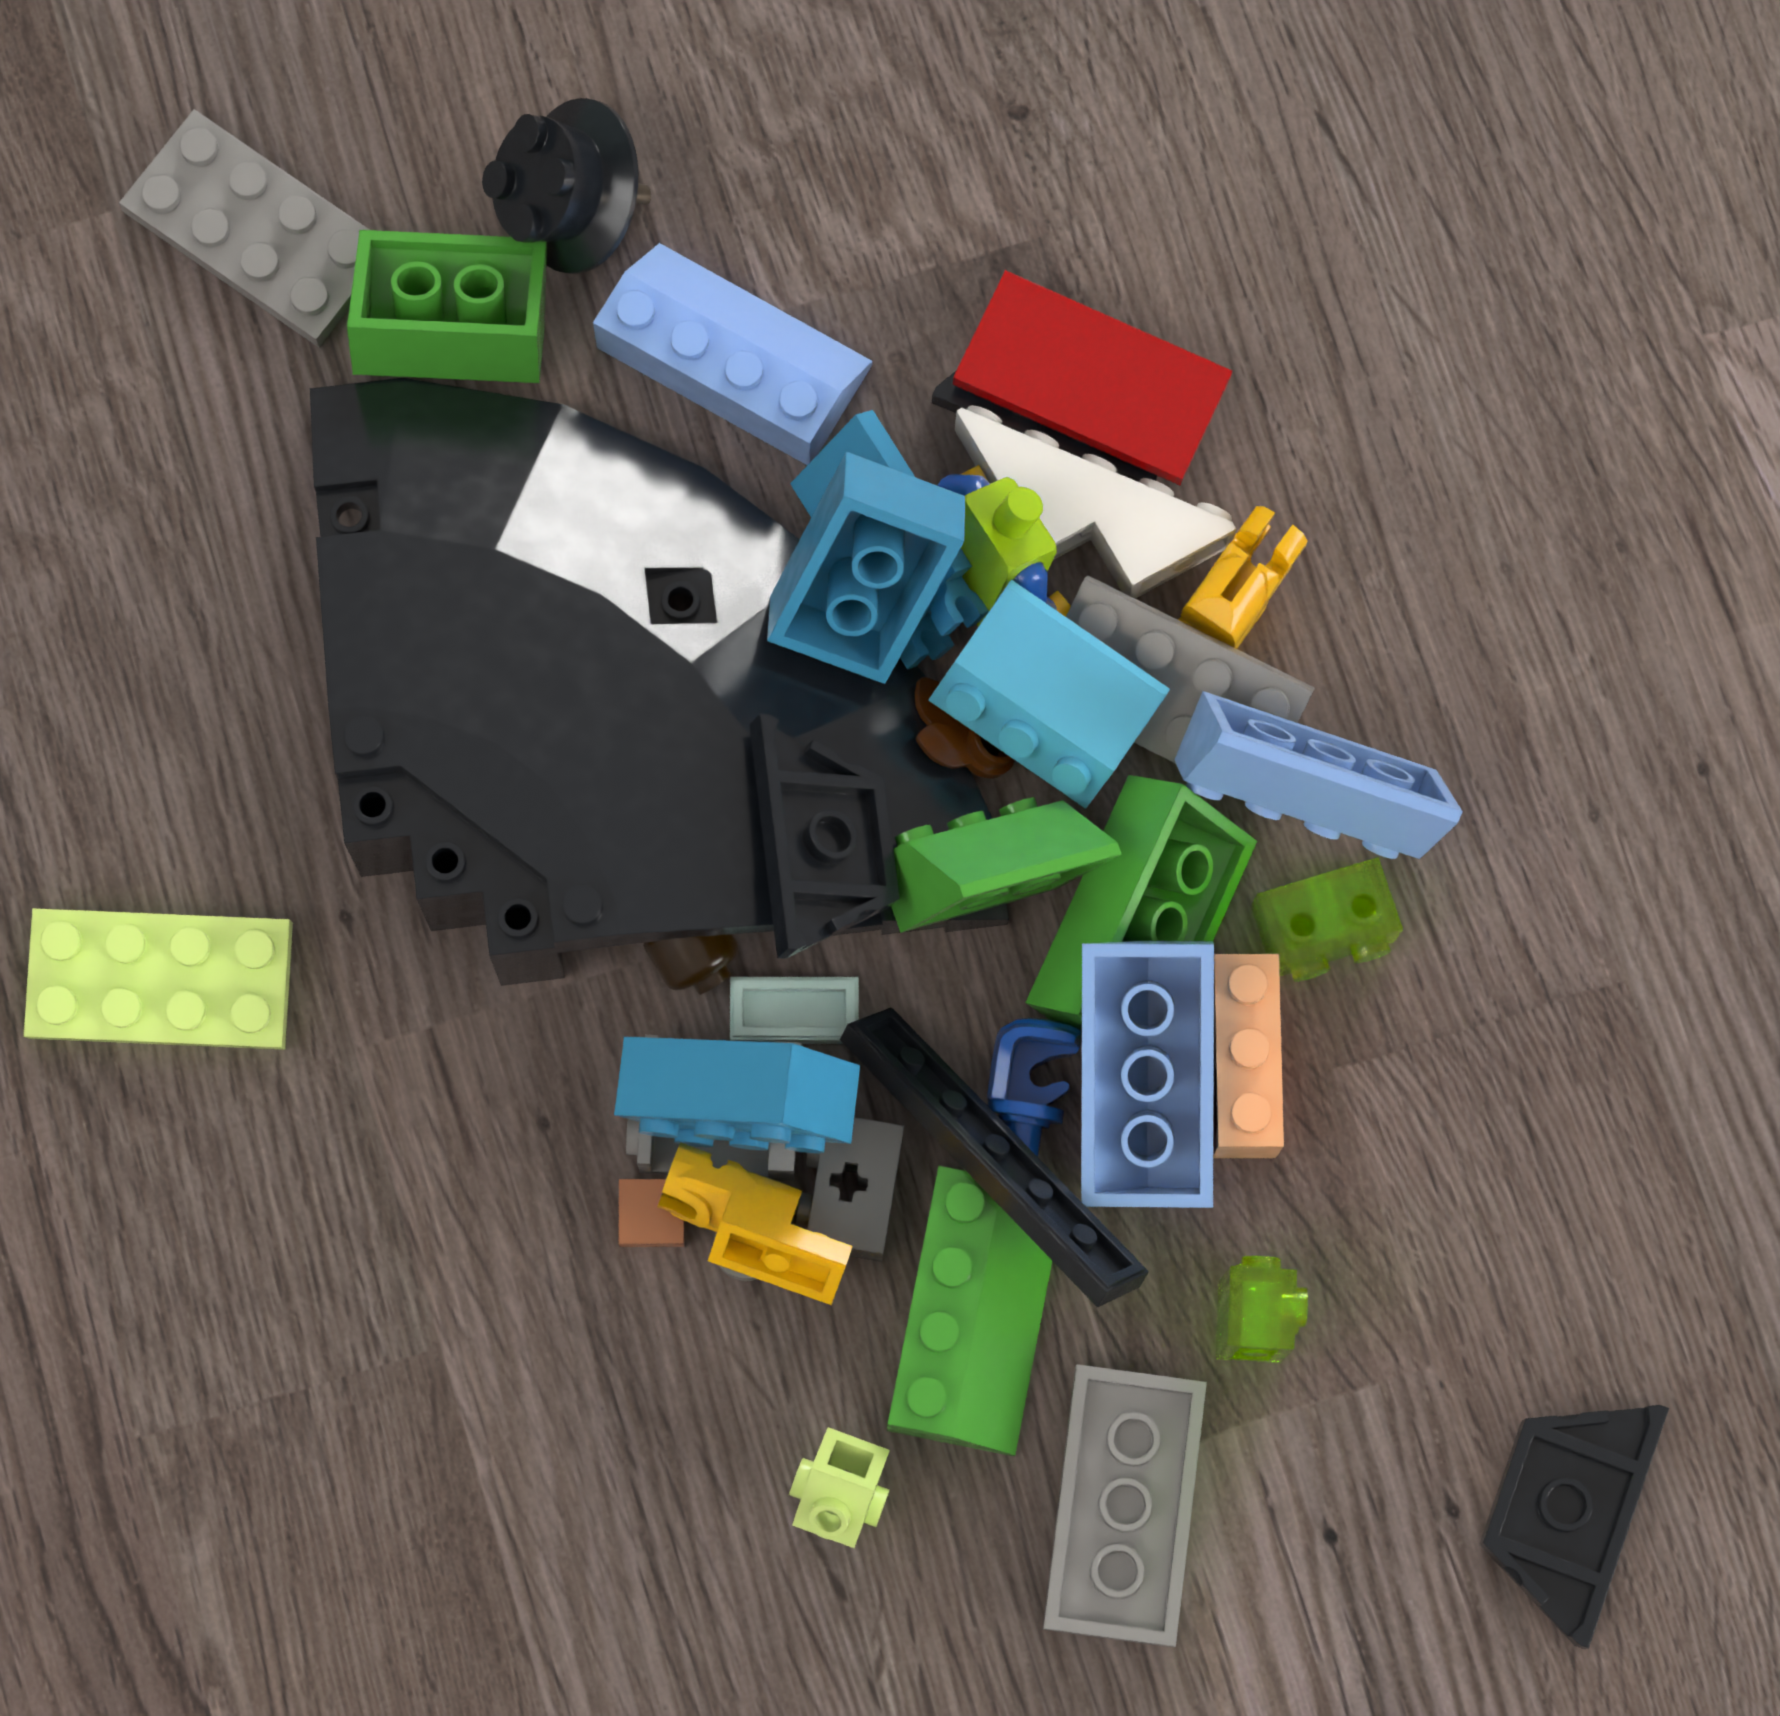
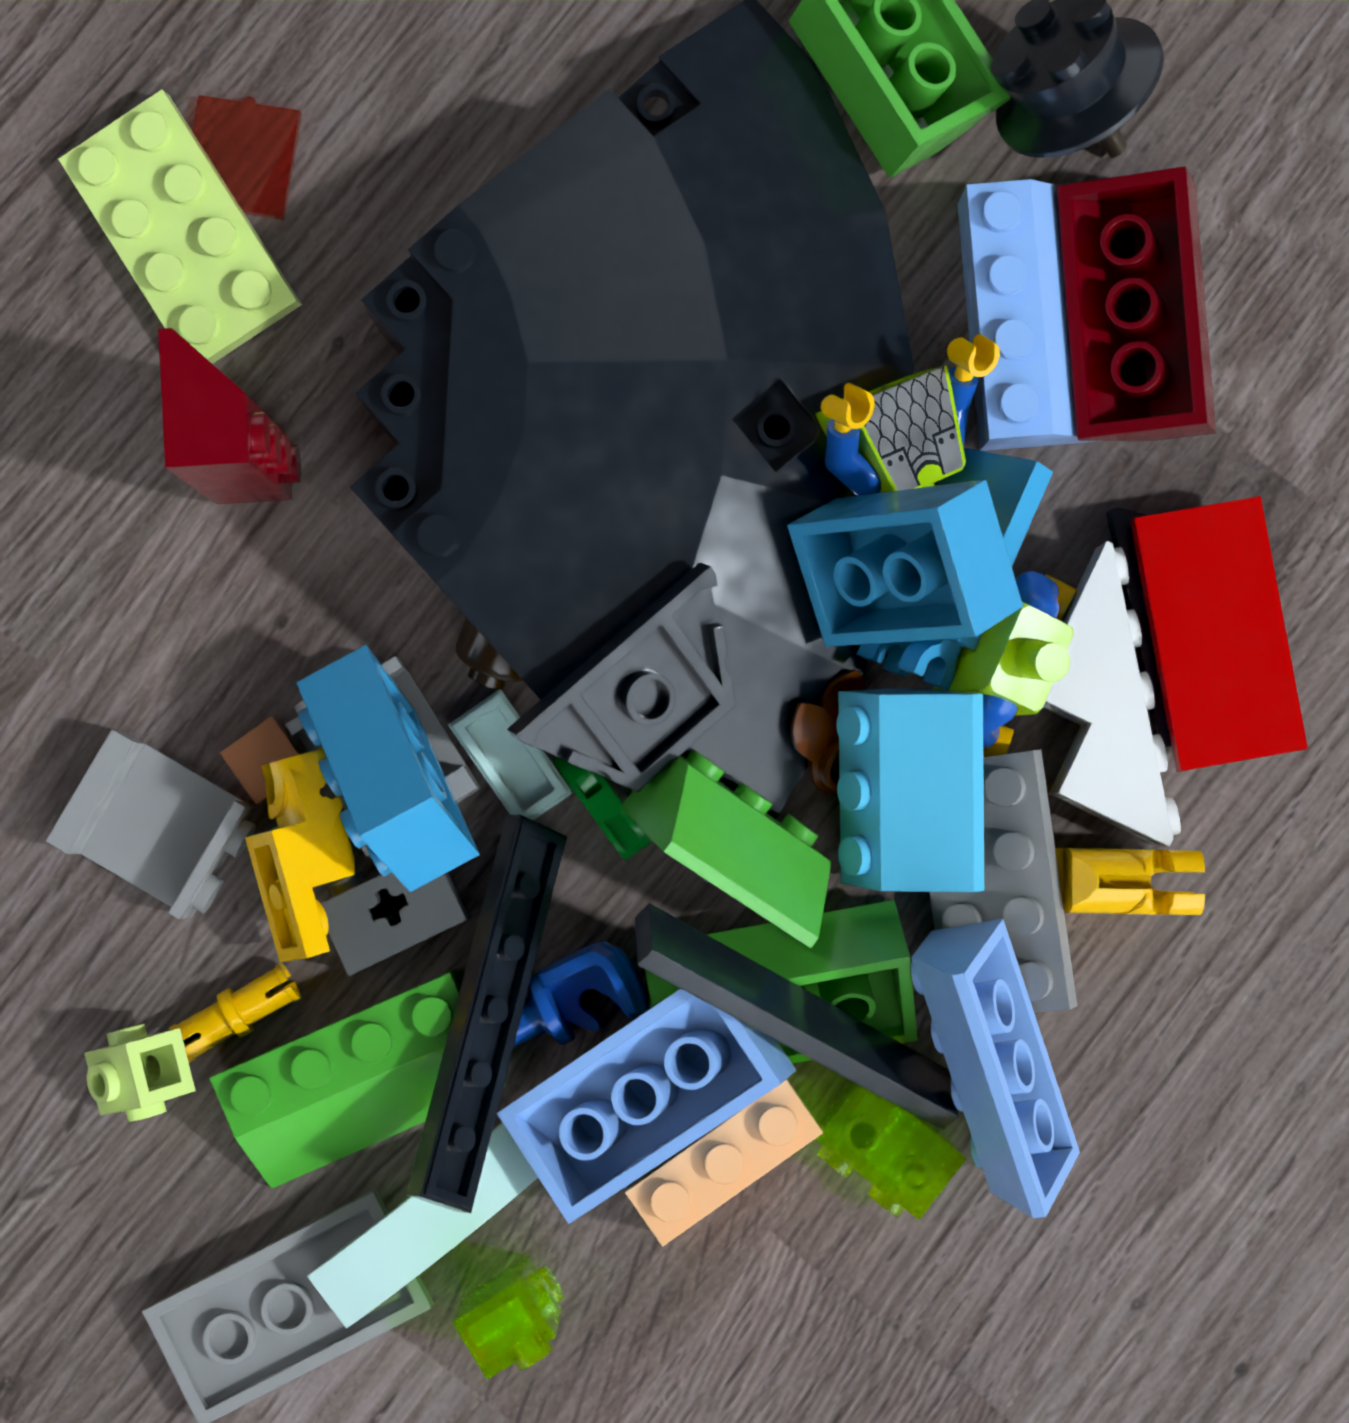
camera: 55 degrees right, 10 degrees up
(132, 875) = (251, 150): none -> clear red piece
(365, 1024) = (218, 434): none -> dark red slope
(643, 1339) = (154, 824): none -> light grey panel
(753, 498) = (908, 428): none -> torso
(785, 263) = (1136, 307): none -> dark red slope
(846, 1375) = (237, 1011): none -> yellow pin
(882, 956) = (604, 808): none -> green piece
(1138, 1348) = (417, 1236): none -> light aqua slope
(1168, 904) = (793, 1016): none -> black tile

